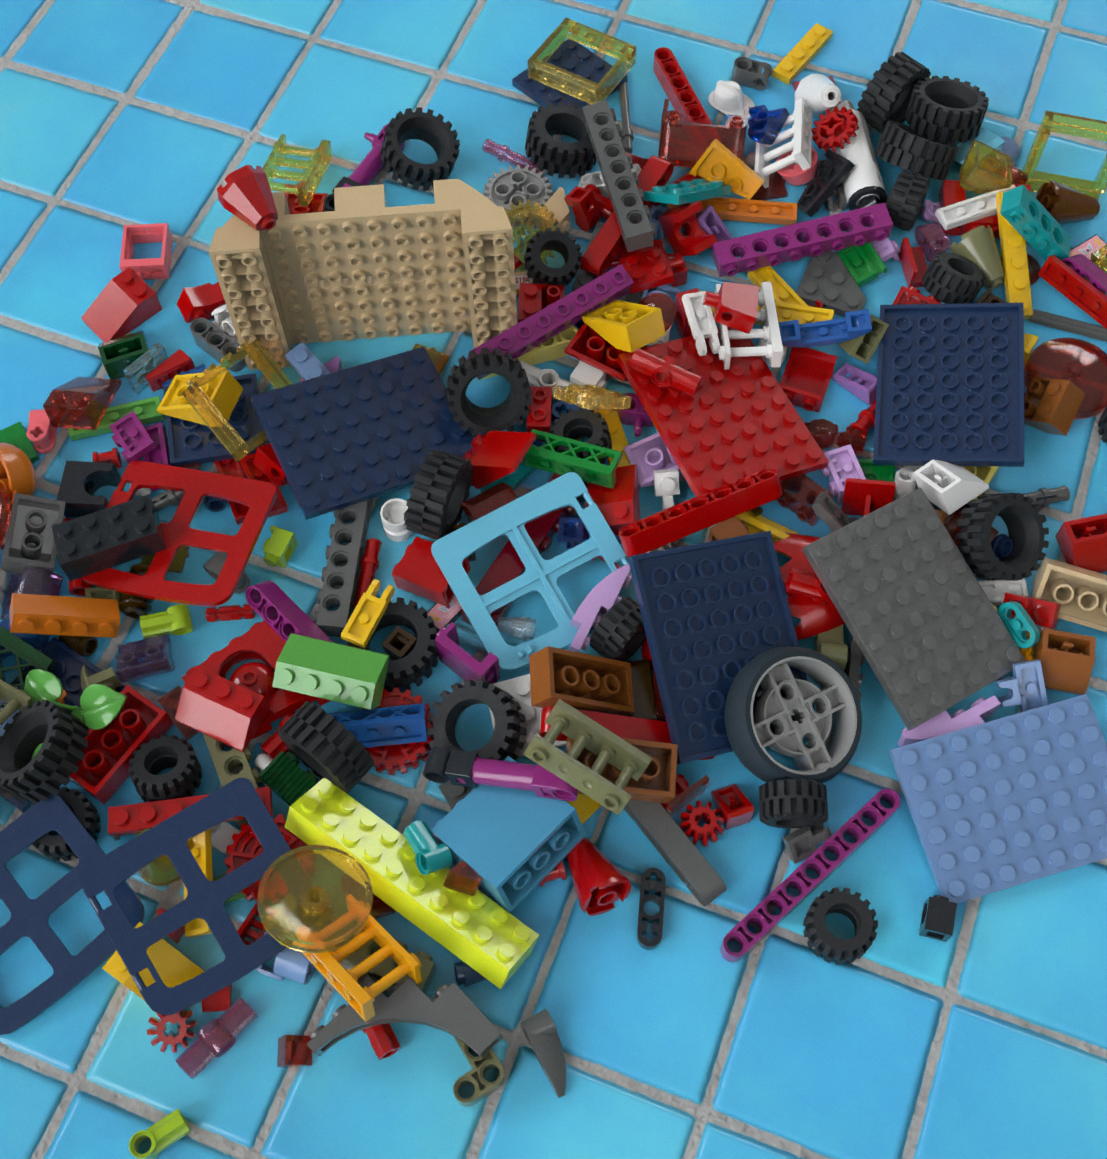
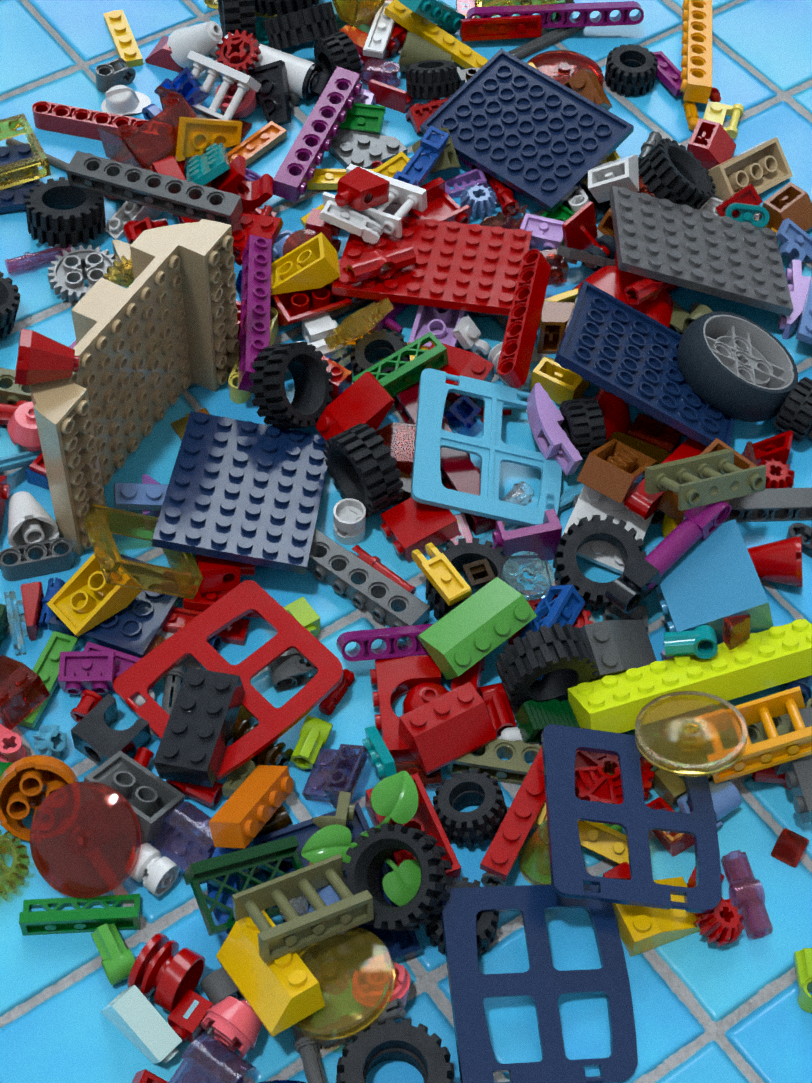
camera: 60 degrees left, 10 degrees down
(58, 450) = (50, 740): none -> medium azure gear
(166, 678) = (379, 753): none -> teal plate
(397, 793) = (618, 645): none -> dark grey slope
(412, 693) = (528, 562): none -> clear light blue plate
(842, 402) = (480, 199): none -> medium blue gear

